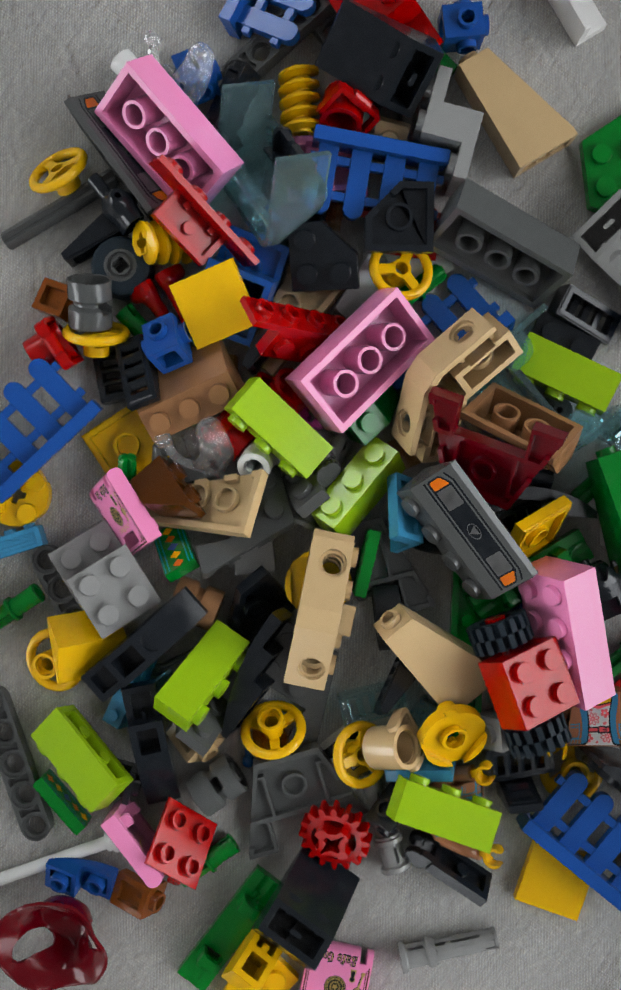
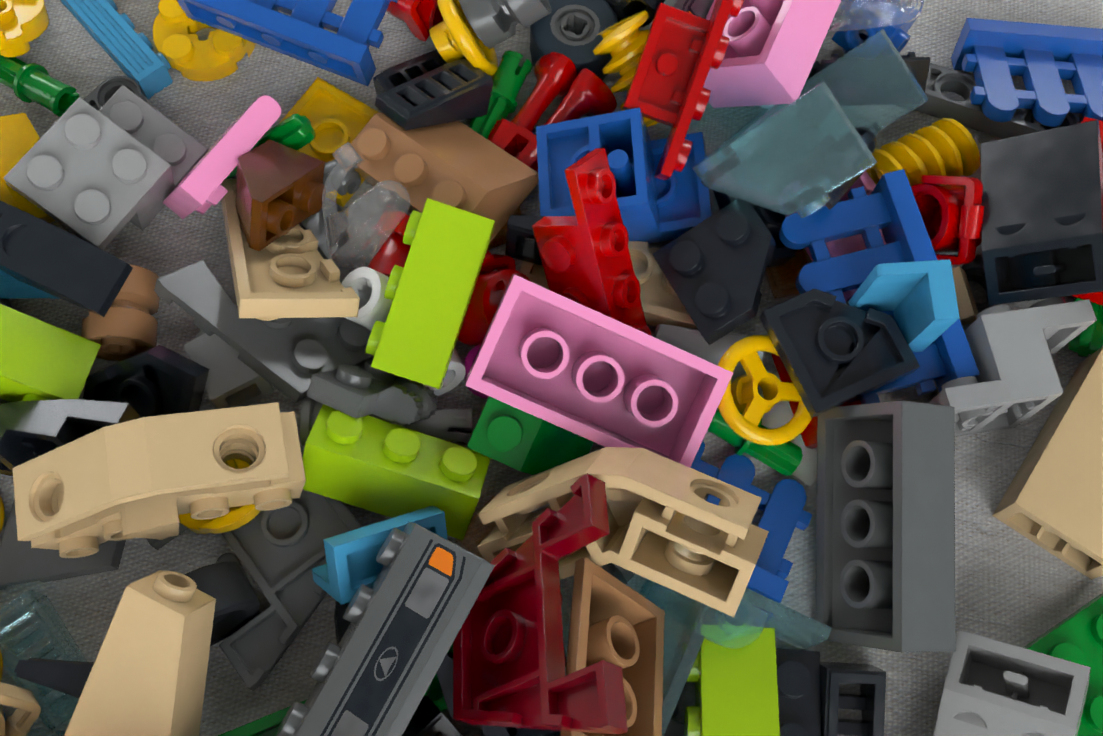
camera: 55 degrees right, 20 degrees down
(167, 343) = (492, 107): blue brick -> none
(176, 553) = (183, 245): green tile -> none
(212, 303) = (571, 126): yellow tile -> none
(366, 562) = (273, 532): green tile -> none
(405, 163) = (918, 294): none -> dark azure panel

